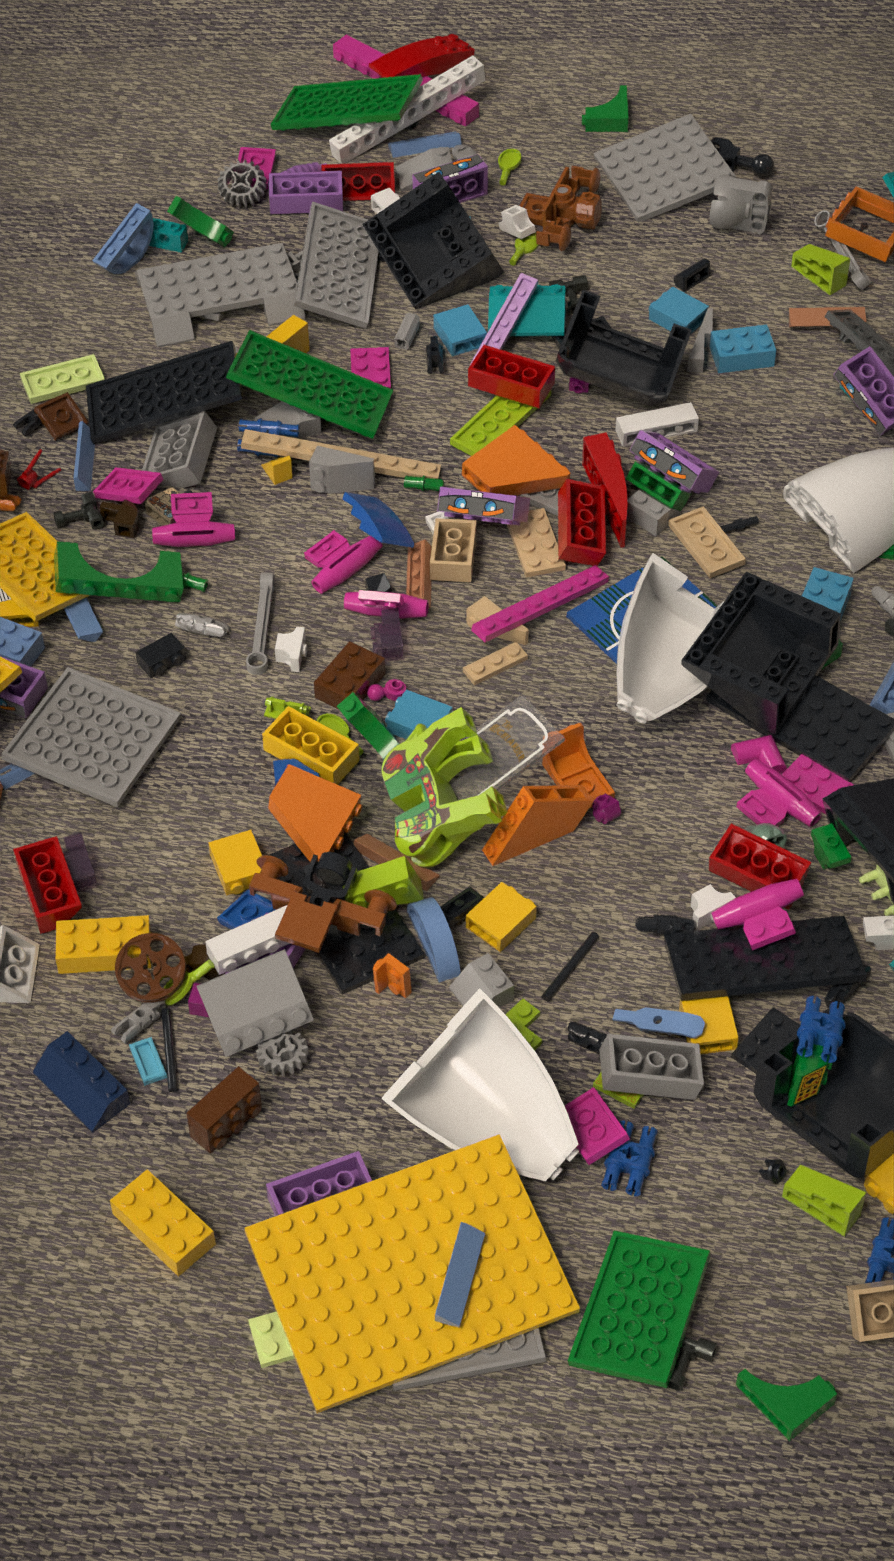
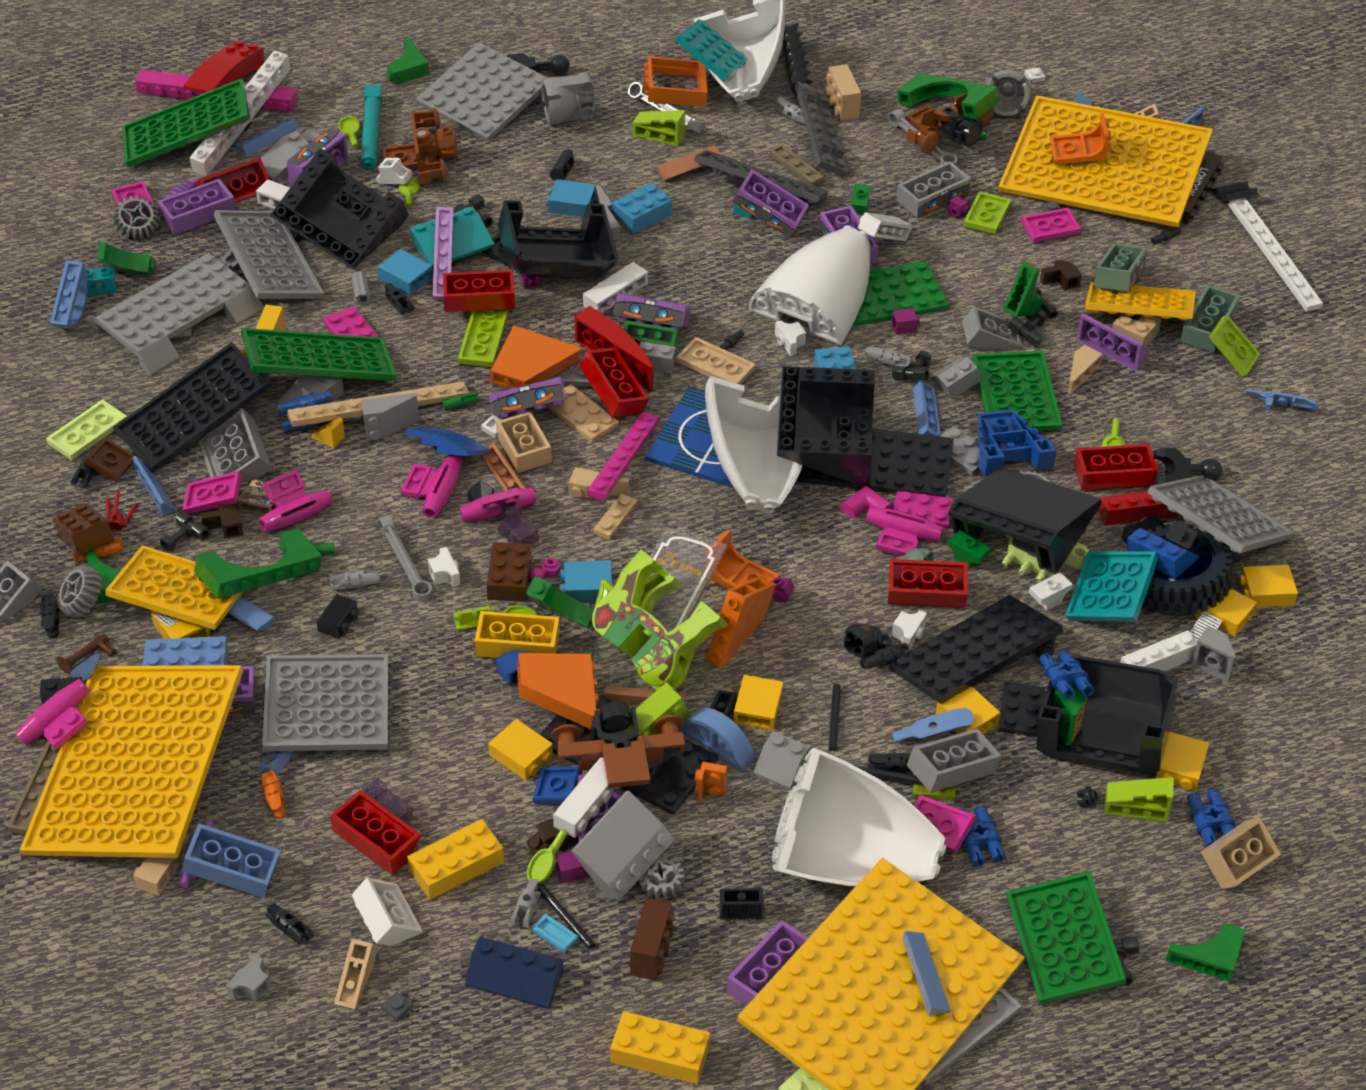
camera: 30 degrees left, 5 degrees down
(157, 959) = (515, 848): reddish brown wedge -> none
(338, 1115) = (741, 903): none -> black brick
(550, 140) = (371, 124): none -> teal brick
(570, 1043) = (891, 775): none -> black bar
(654, 896) = (864, 639): none -> black piece
(761, 913) = (956, 614): dark pink plate -> none
(803, 543) = (790, 336): none -> white brick

